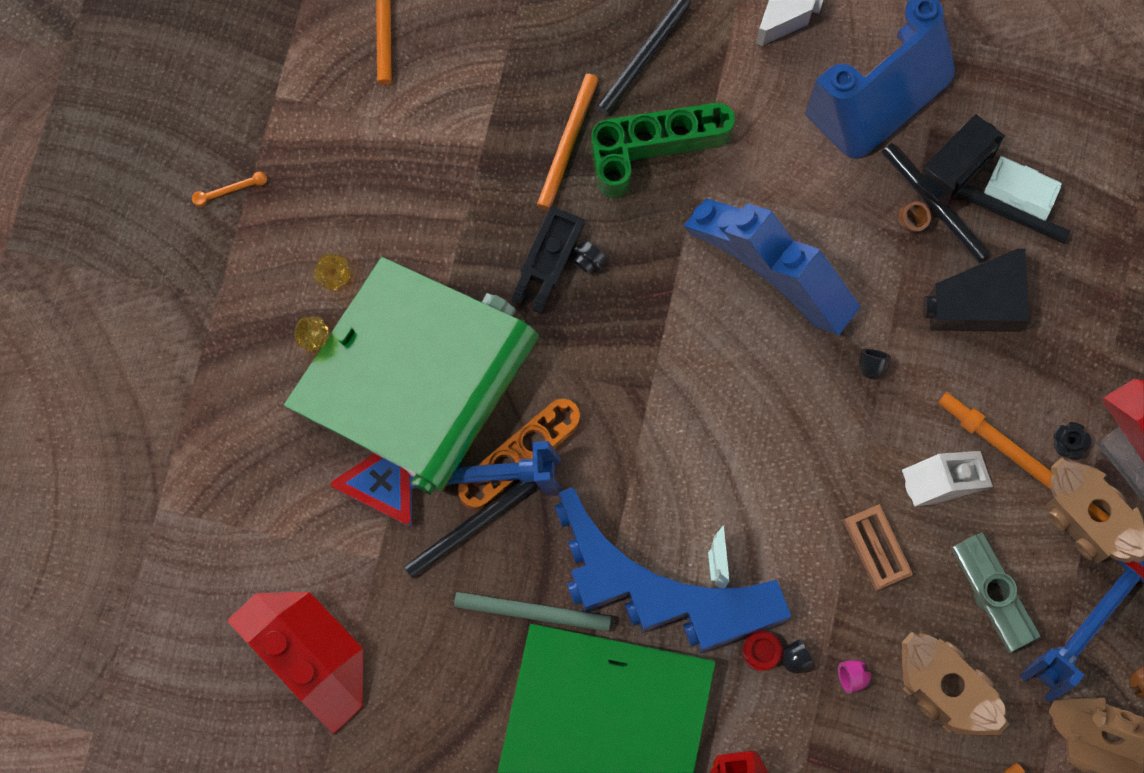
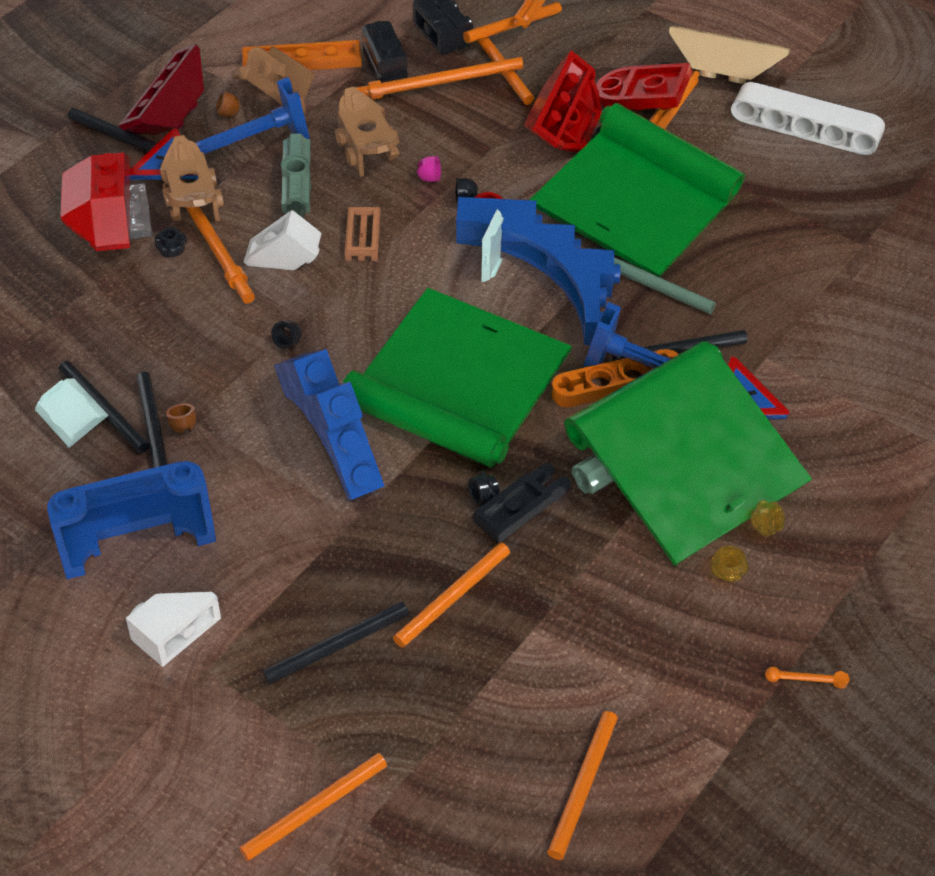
camera: 155 degrees left, 25 degrees down
(306, 652) = (857, 313): red wedge -> none
(663, 143) = (320, 548): green beam -> none
(680, 382) = (459, 376): none -> green door
(959, 160) = (113, 433): black window -> none
(982, 297) = (167, 343): black slope -> none

